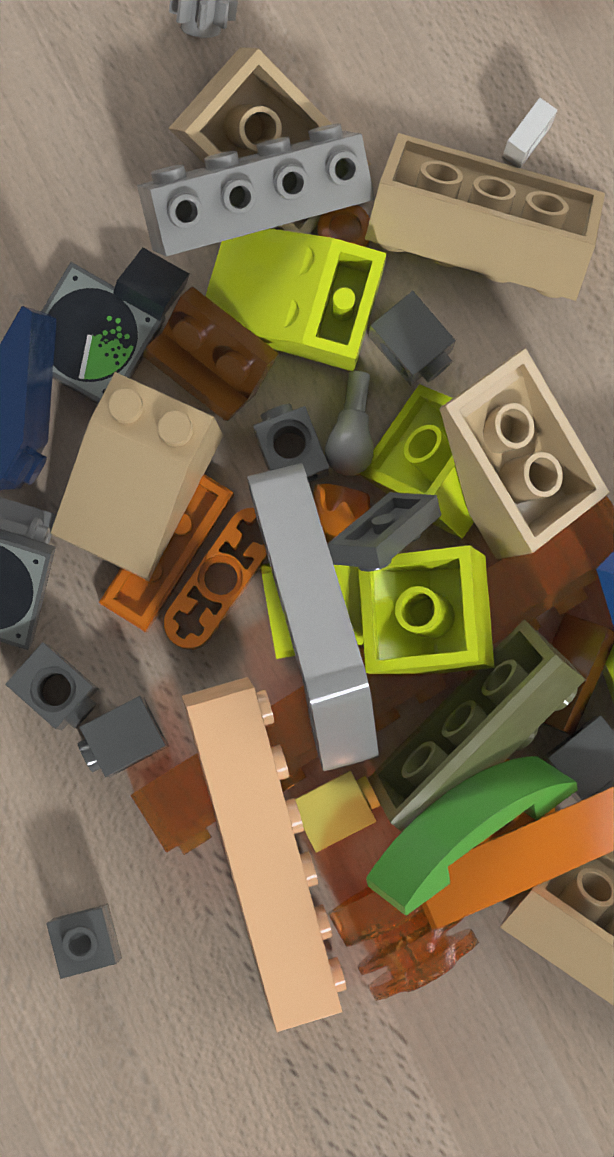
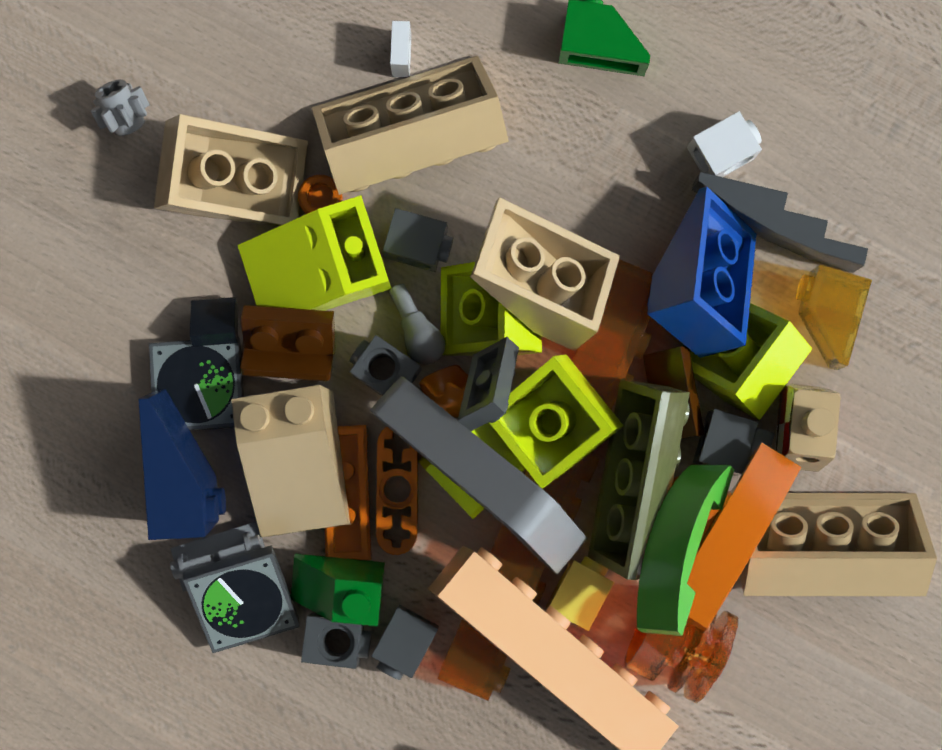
camera: 35 degrees left, 0 degrees up
(94, 637) = (339, 588): none -> green slope
(255, 191) = (243, 213): light grey brick -> none

